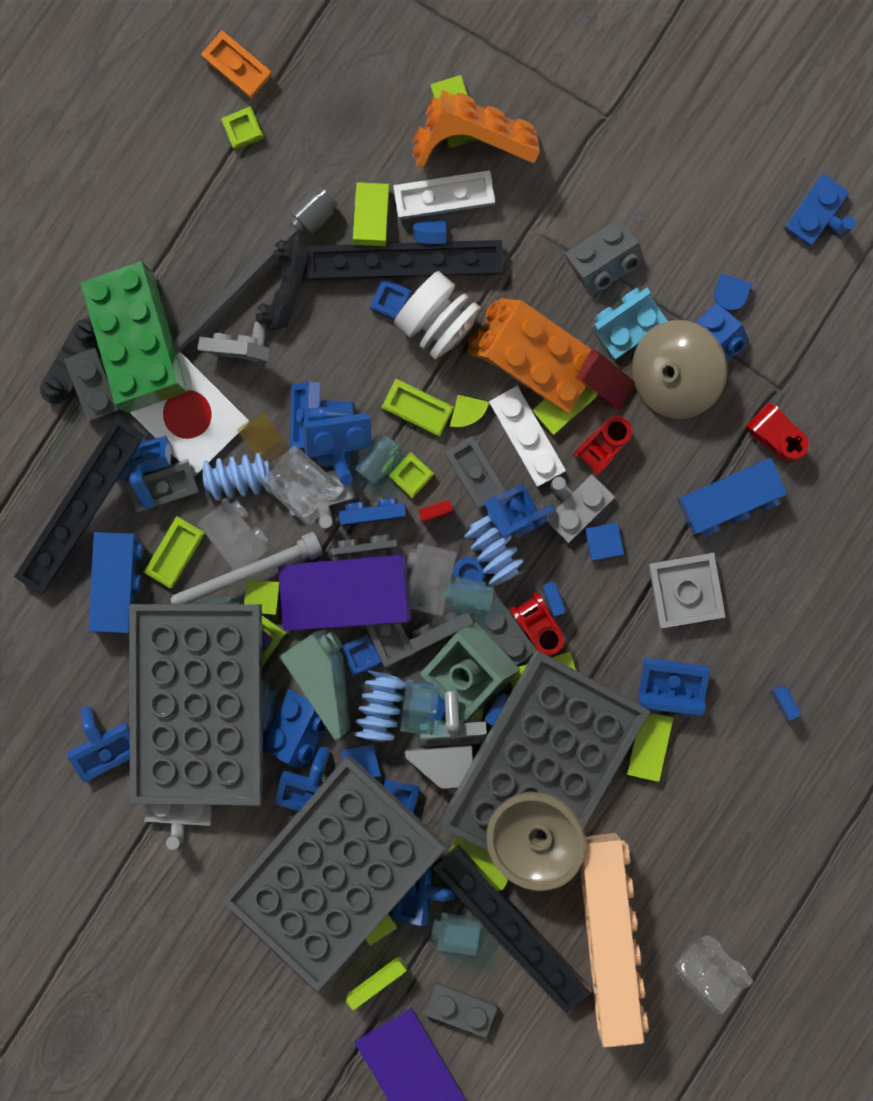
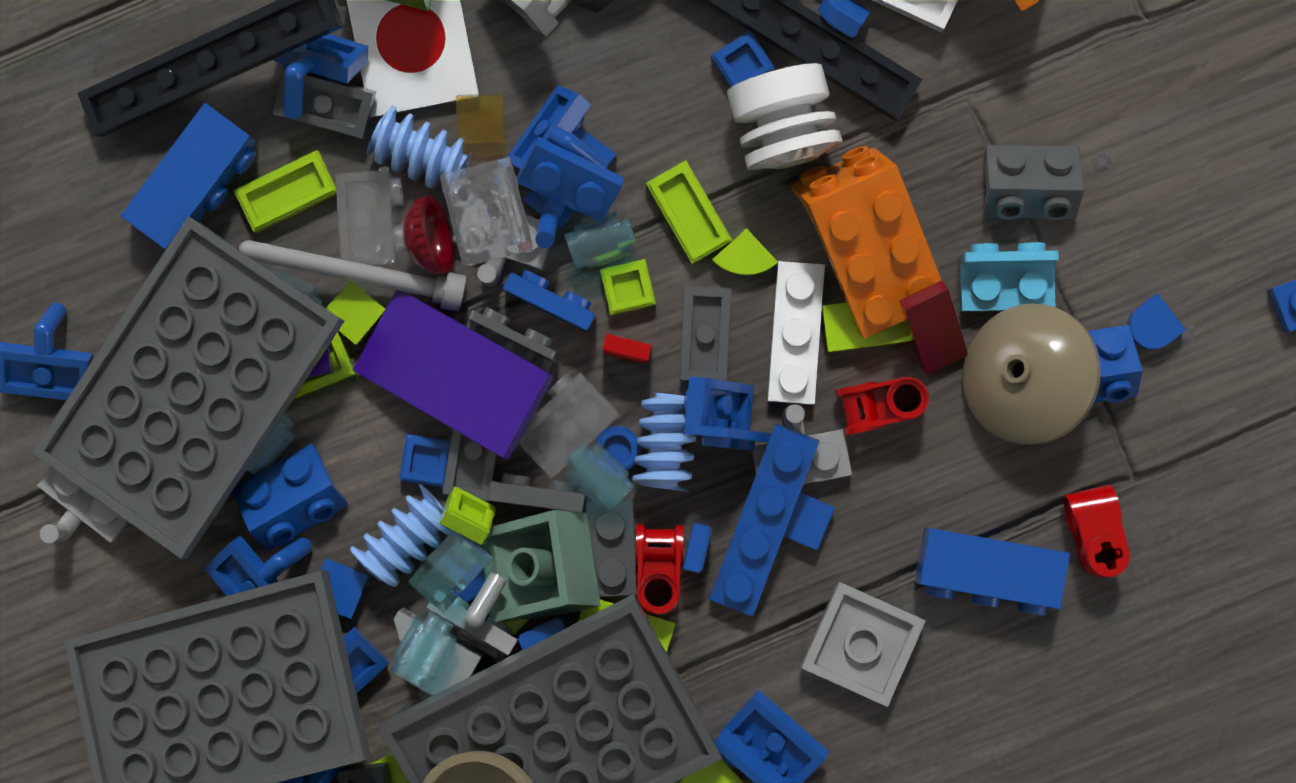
camera: 35 degrees right, 0 degrees up
(276, 523) = (429, 236): none -> dark red hat
(321, 675) = (357, 456): sand green slope -> none
(408, 669) = (468, 515): none -> lime tile
(436, 762) = (424, 649): none -> clear light blue brick
(581, 556) = (764, 519): none -> blue plate

